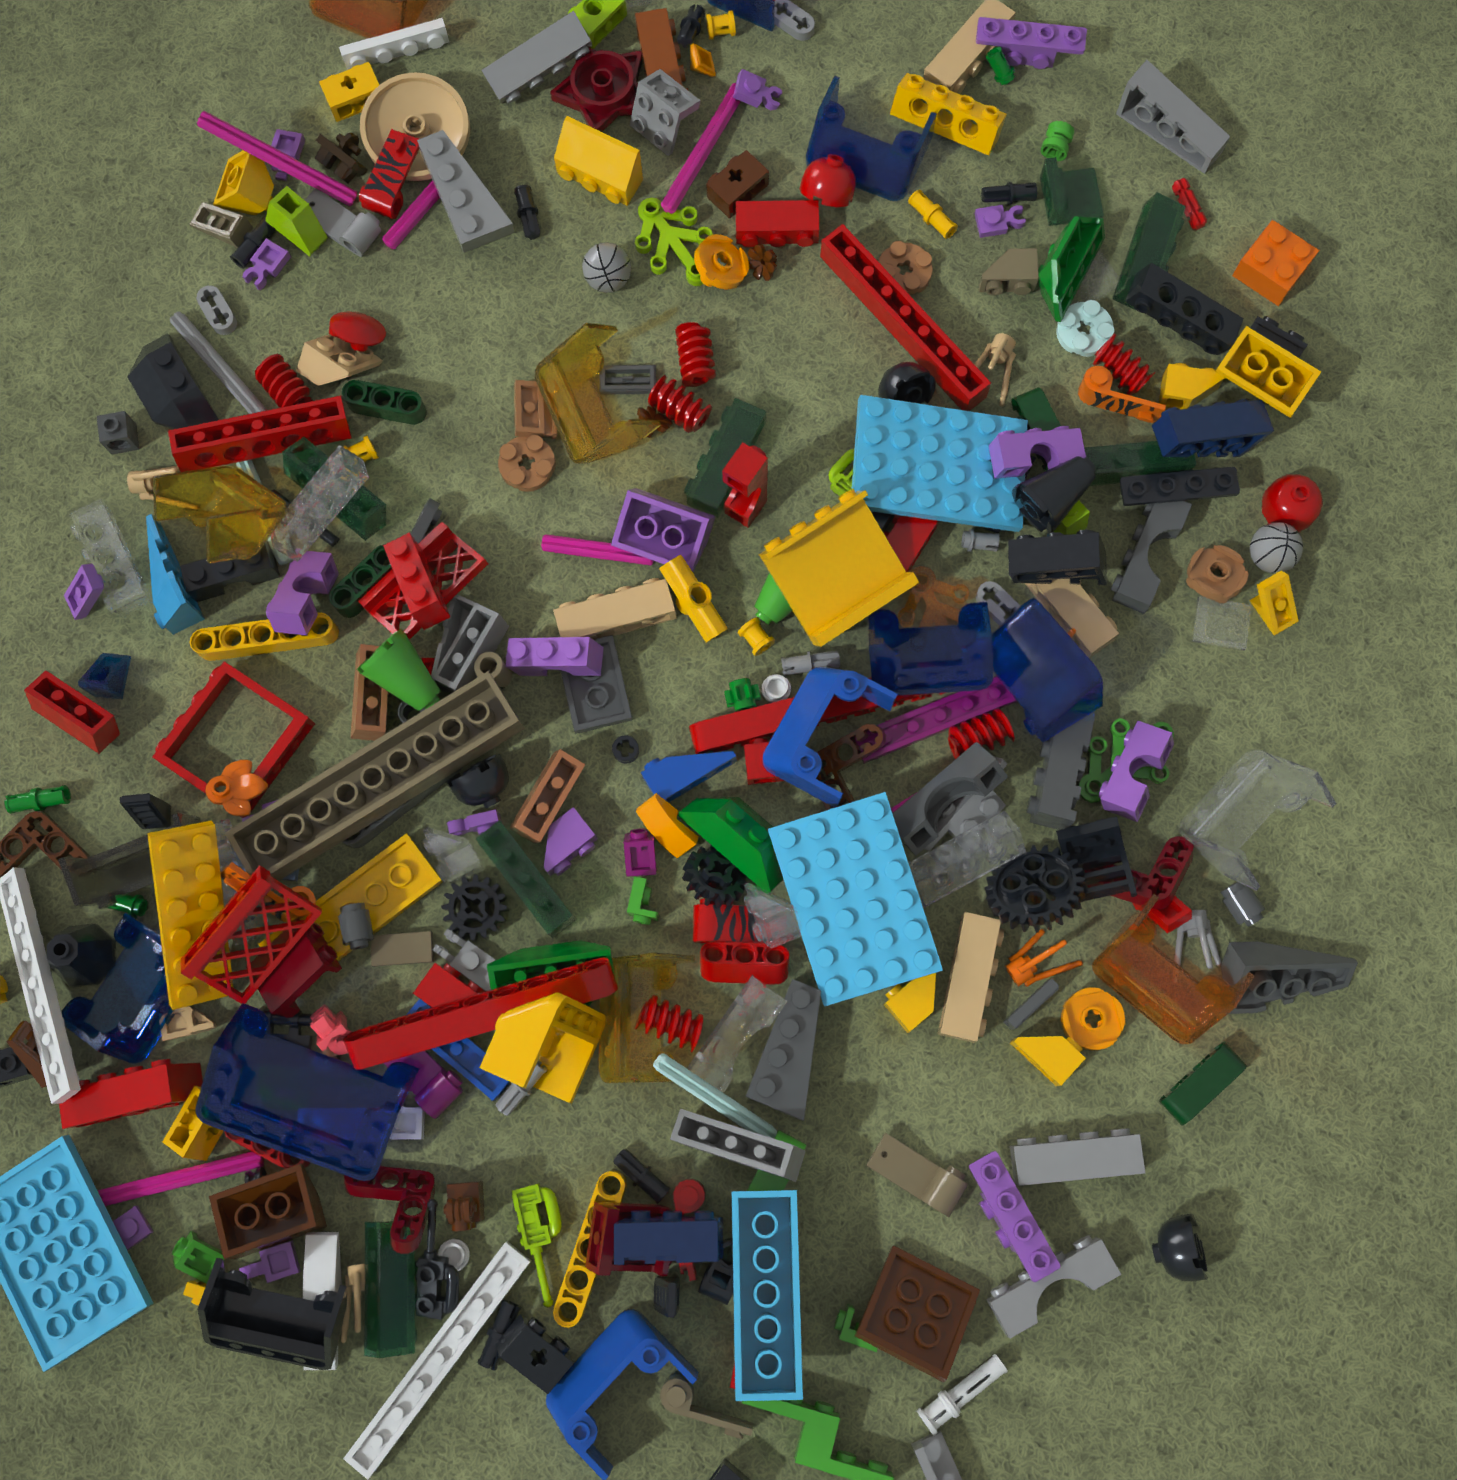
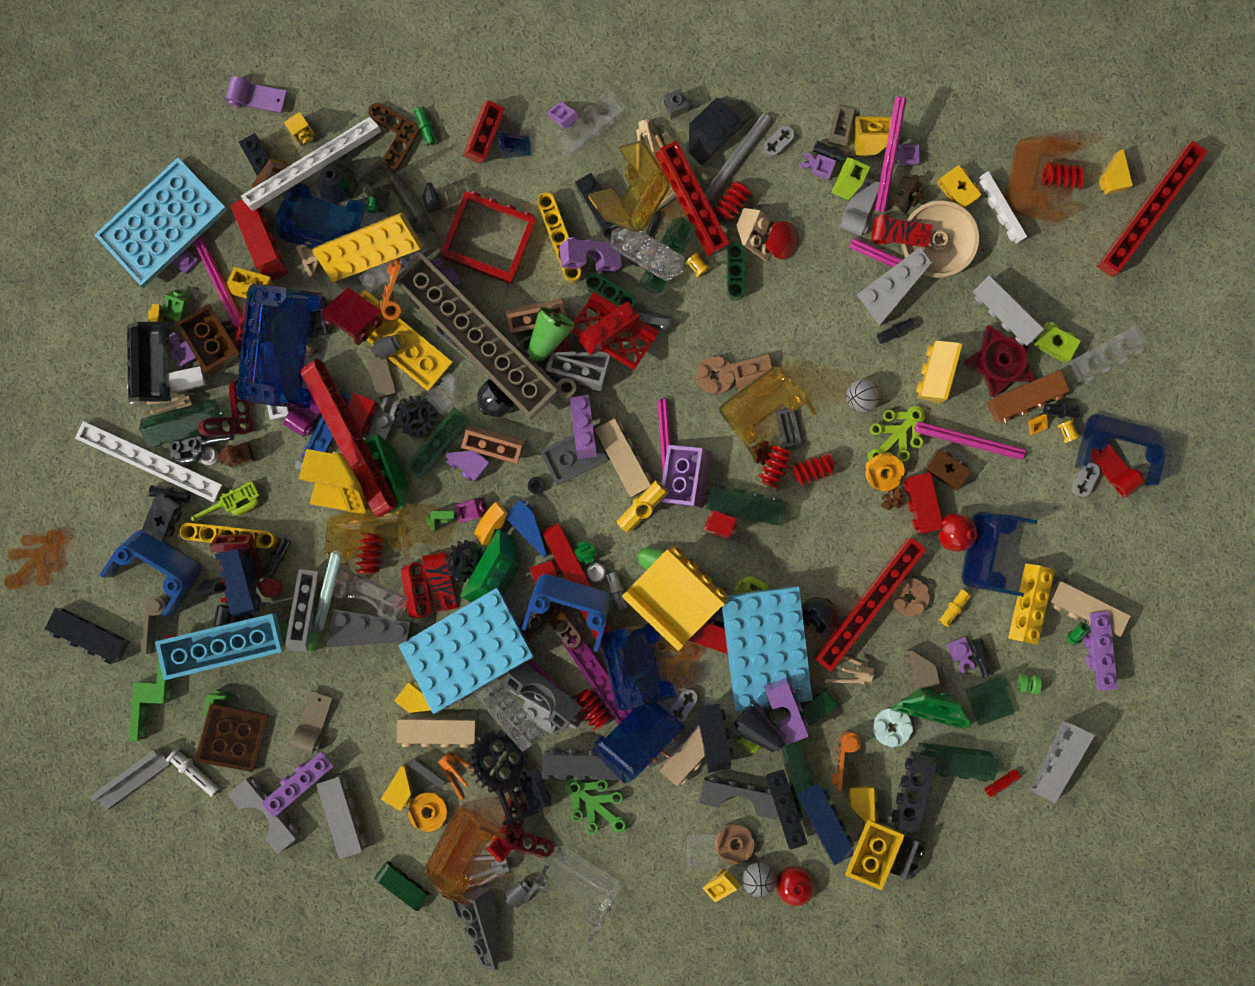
camera: 70 degrees right, 10 degrees up
(173, 604) = (576, 168): dark azure wedge -> none
(225, 927) = (364, 274): red fence -> none
(240, 788) = (457, 252): orange plate -> none
(330, 1029) = (322, 347): coral hips -> none
(476, 823) = (468, 408): medium lavender plate -> none
(659, 109) = (989, 406): light grey bracket -> none
(752, 91) = (1021, 464): medium lavender plate -> none
(756, 636) = (627, 552): yellow bush -> none
(774, 916) = (446, 603): clear slope -> none
(980, 540) = (724, 684): light grey pin -> none
(1122, 366) = (867, 757): red piece -> none
(1143, 747) = (604, 814): medium lavender arch -> none
(1181, 1249) = (300, 888): black cylinder -> none
(1275, 262) = (967, 849): orange brick -> none

